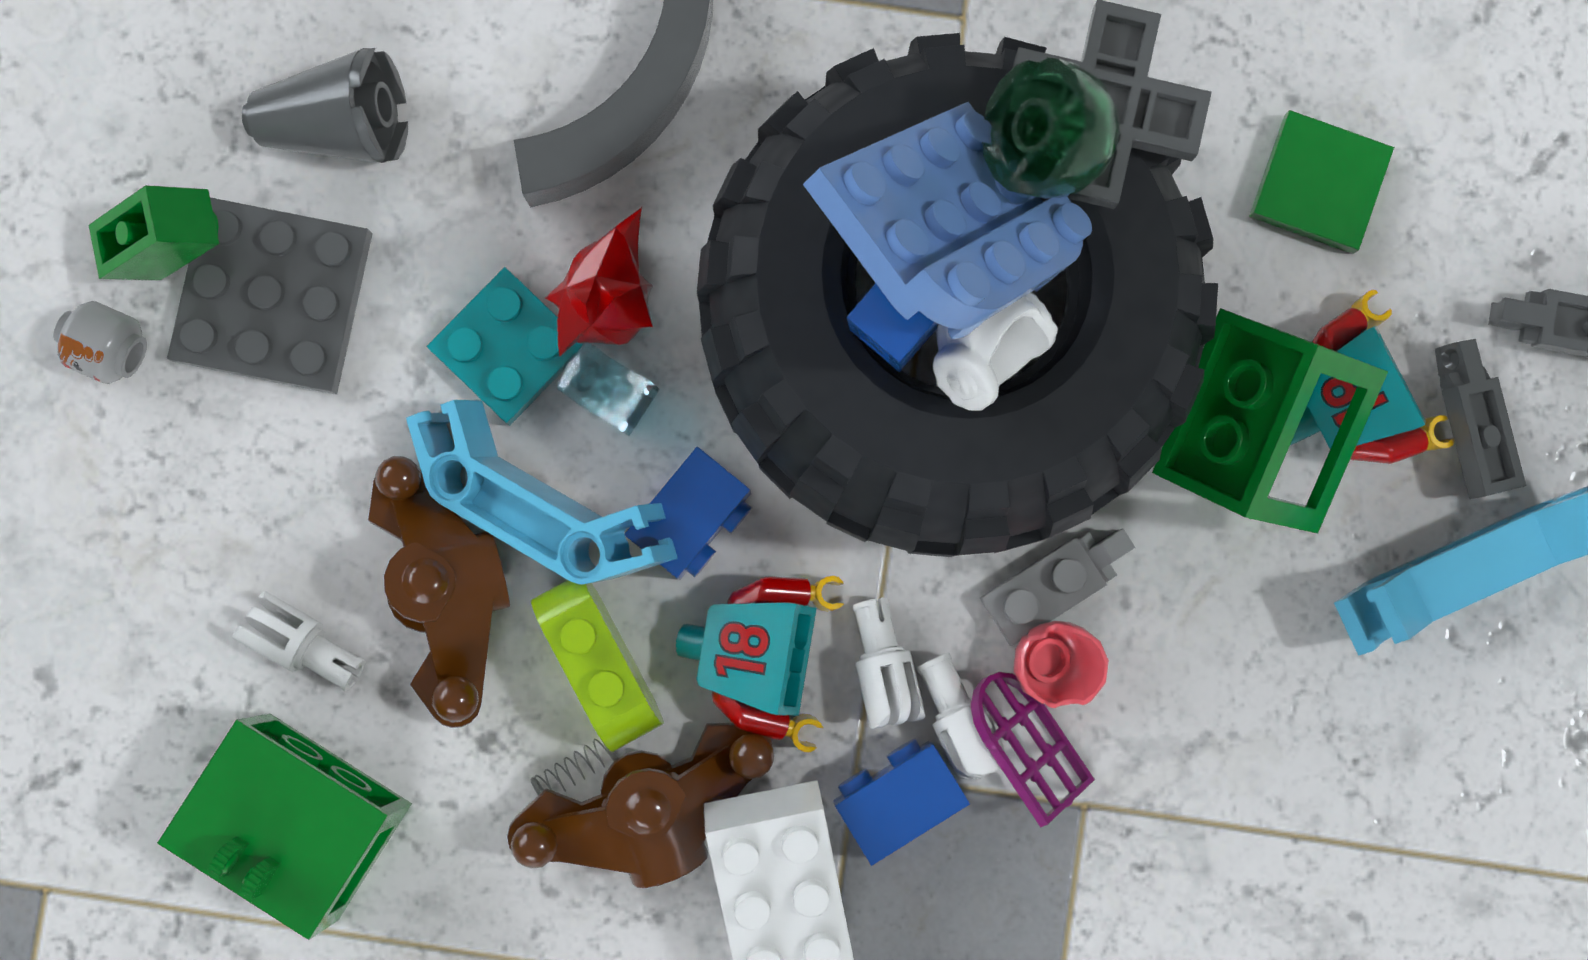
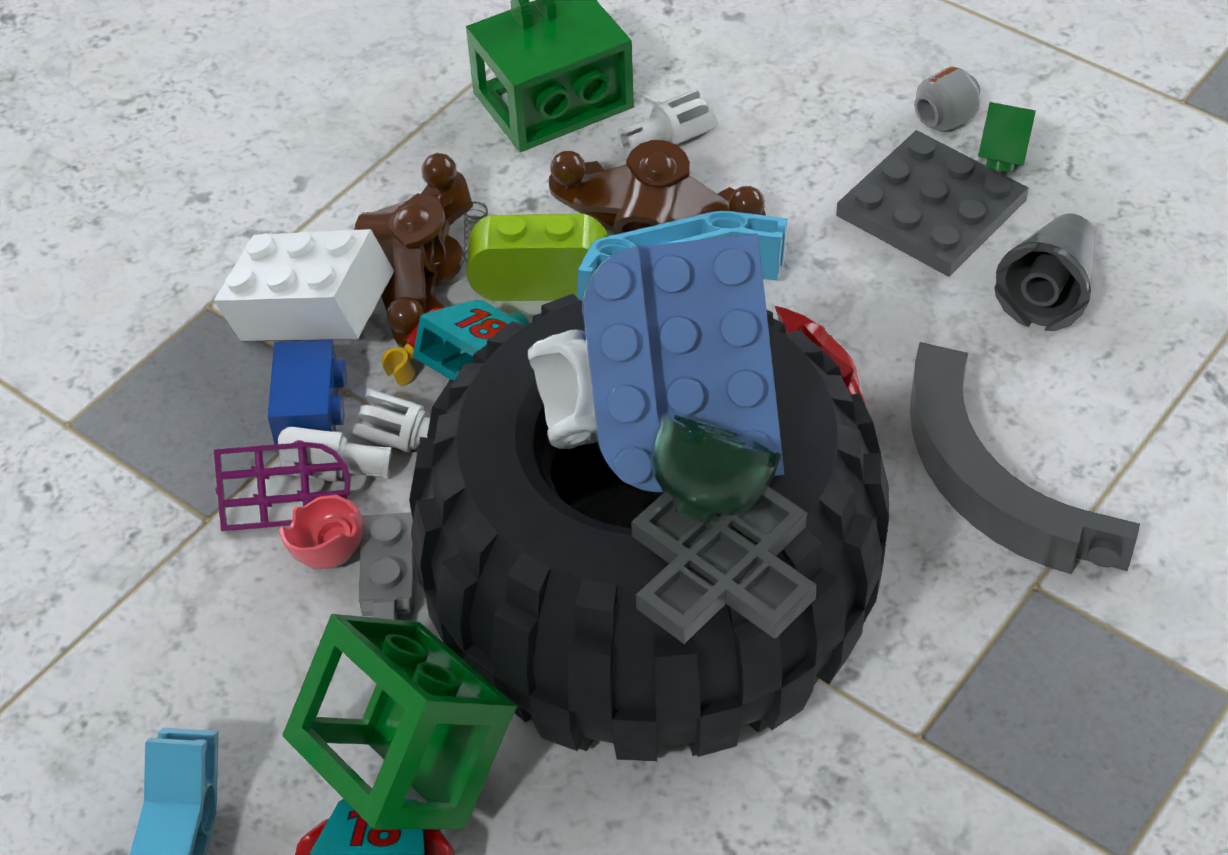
camera: 125 degrees right, 35 degrees down
(504, 346) = (825, 299): teal plate -> none

